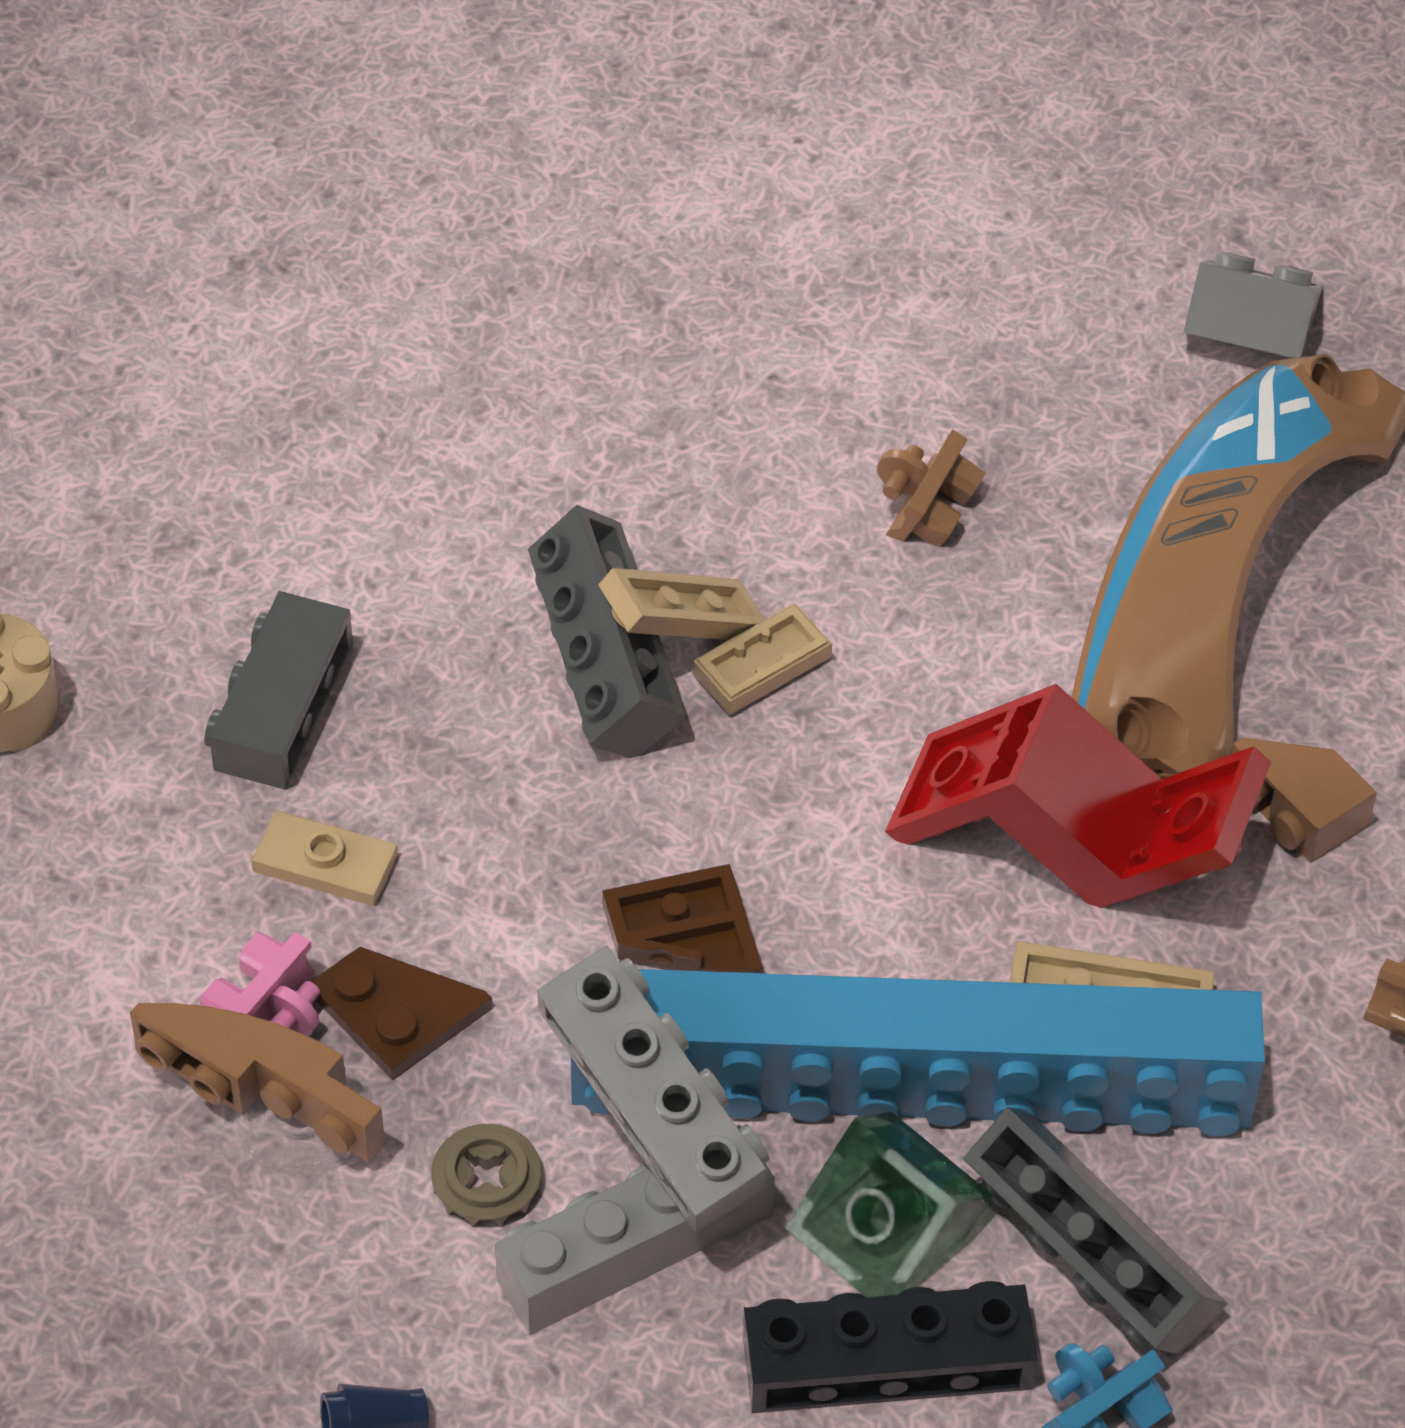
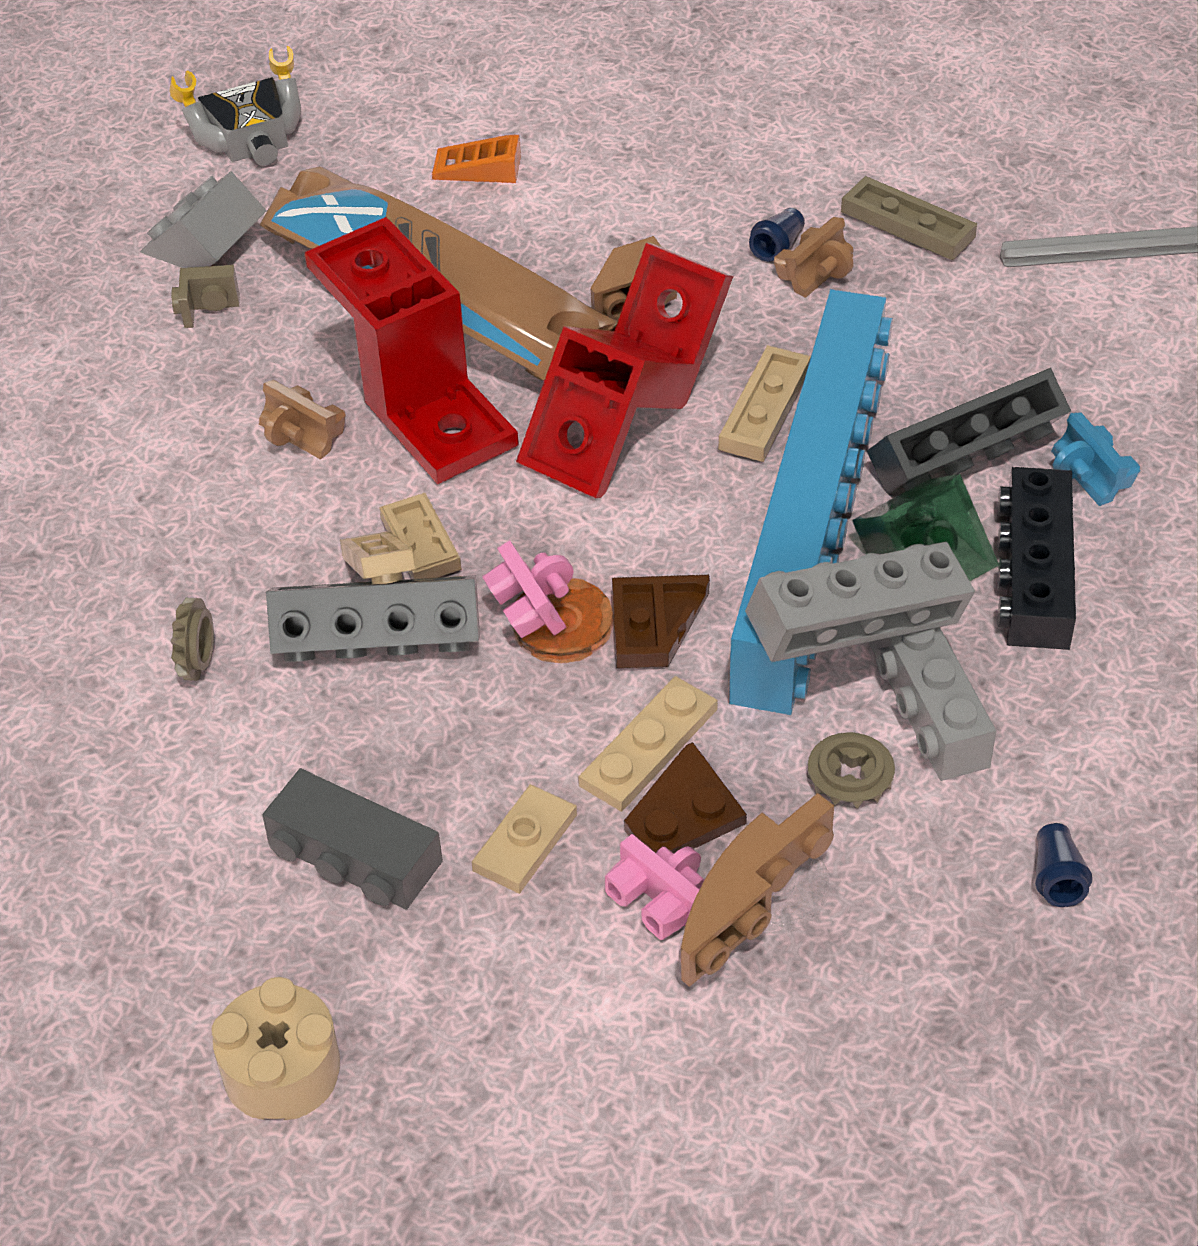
camera: 75 degrees left, 5 degrees down
(477, 950) = (648, 743): none -> tan plate
(511, 483) = (192, 639): none -> dark tan gear
(666, 828) = (588, 623): none -> clear orange tile
(673, 777) = (547, 577): none -> bright pink hips
(1027, 552) = (412, 349): none -> red bracket
(1131, 332) = (204, 288): none -> dark tan bracket

